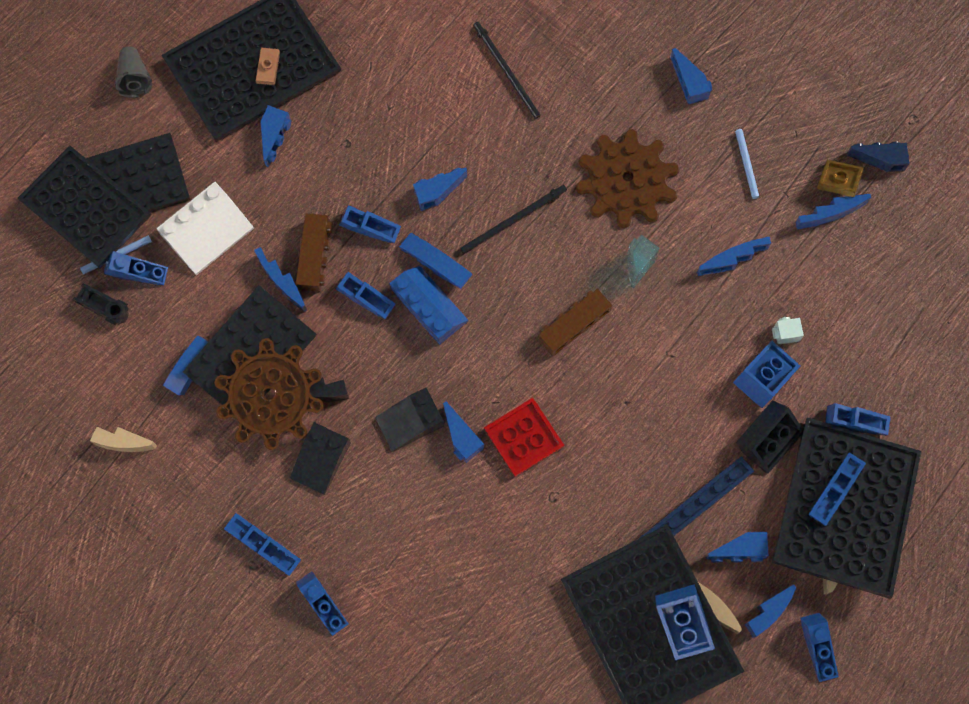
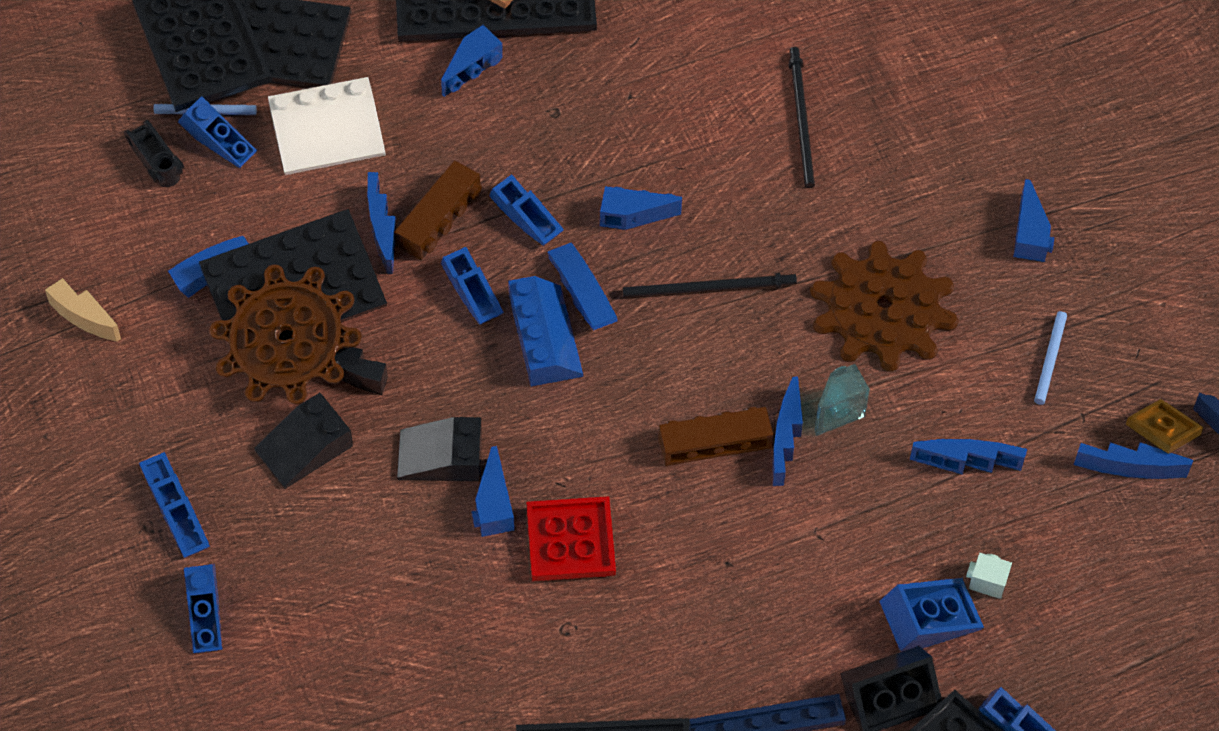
camera: 25 degrees right, 15 degrees down
(614, 291) = (788, 426): none -> blue slope

